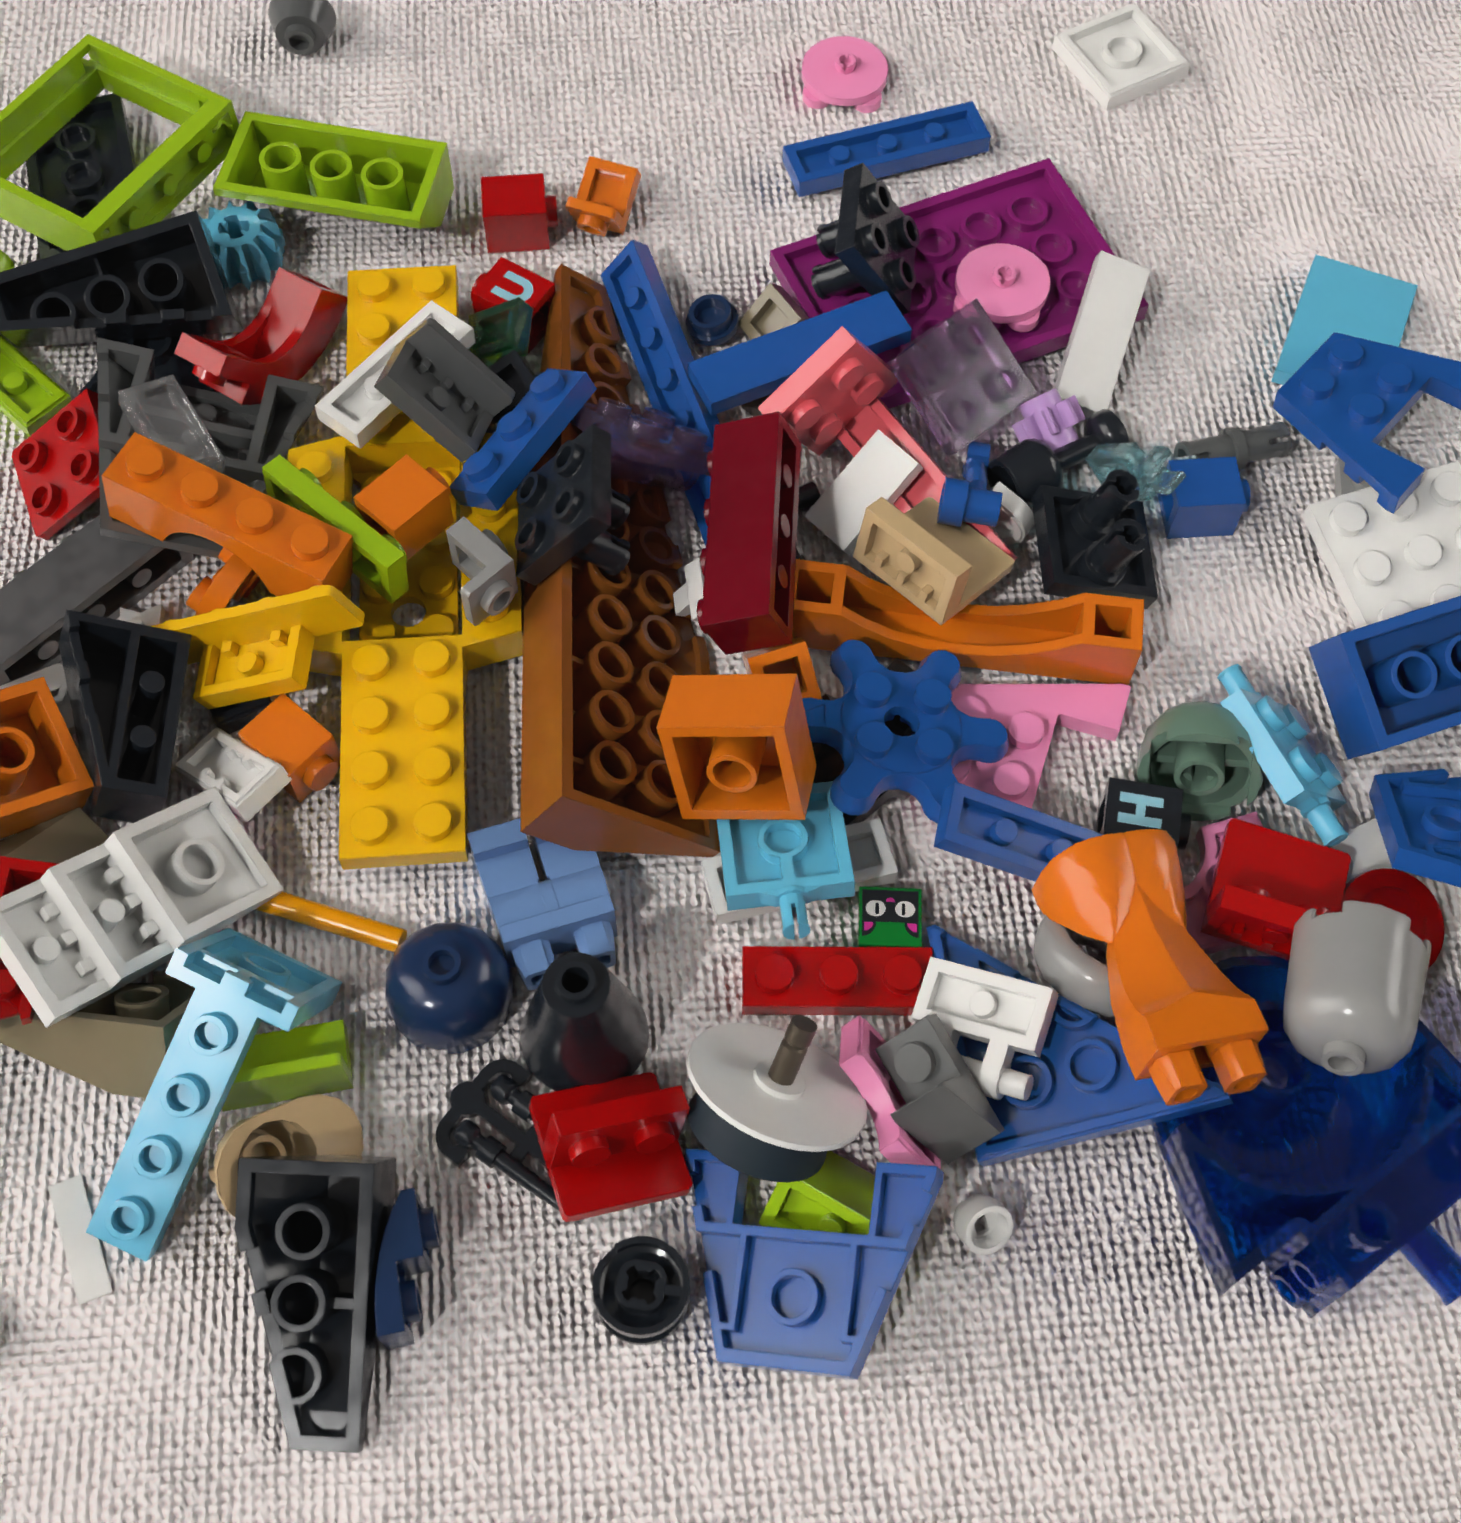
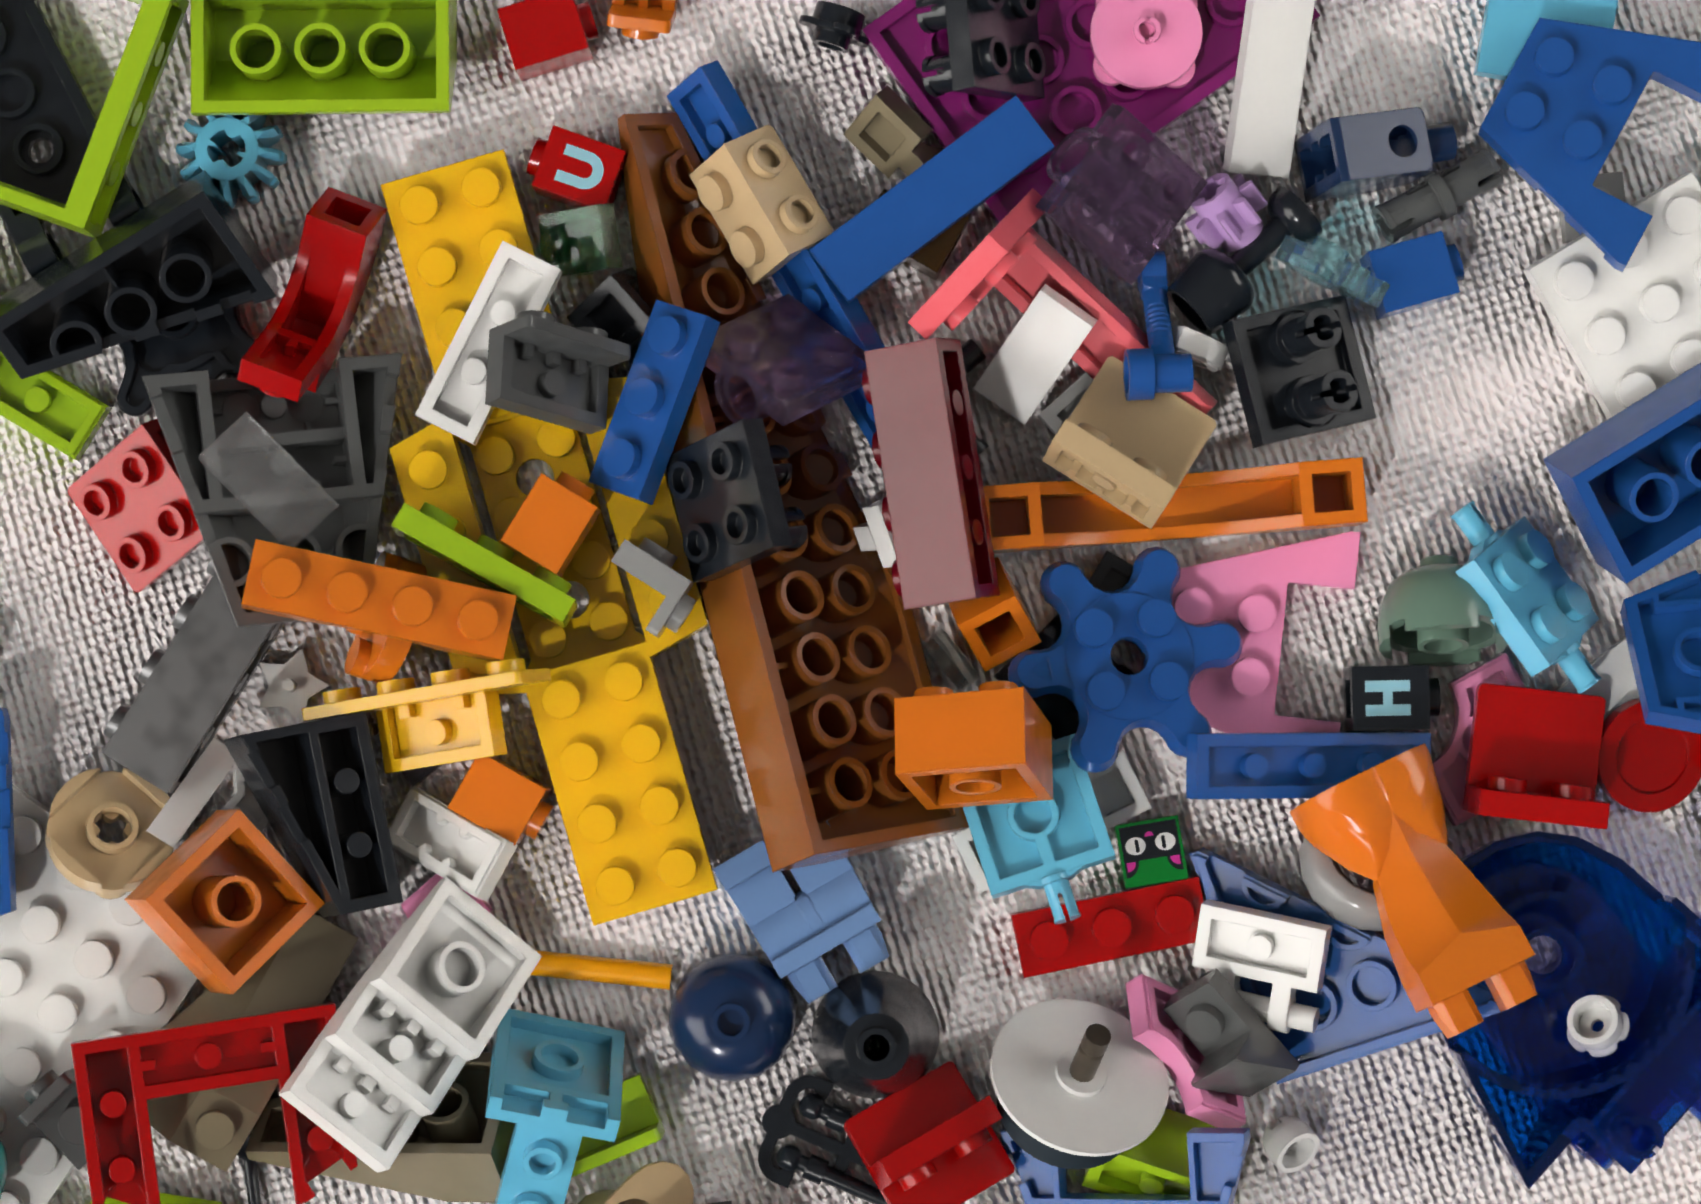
camera: 10 degrees left, 25 degrees up
(652, 339) = (760, 202): none -> tan bracket
(712, 320) = (814, 139): dark blue plate -> none
(749, 245) = (835, 26): none -> black plate
(1179, 395) = (1371, 152): none -> dark blue torso
(1319, 1148) = (1591, 1010): none -> white plate
(1355, 988) = (1613, 891): light grey cylinder -> none

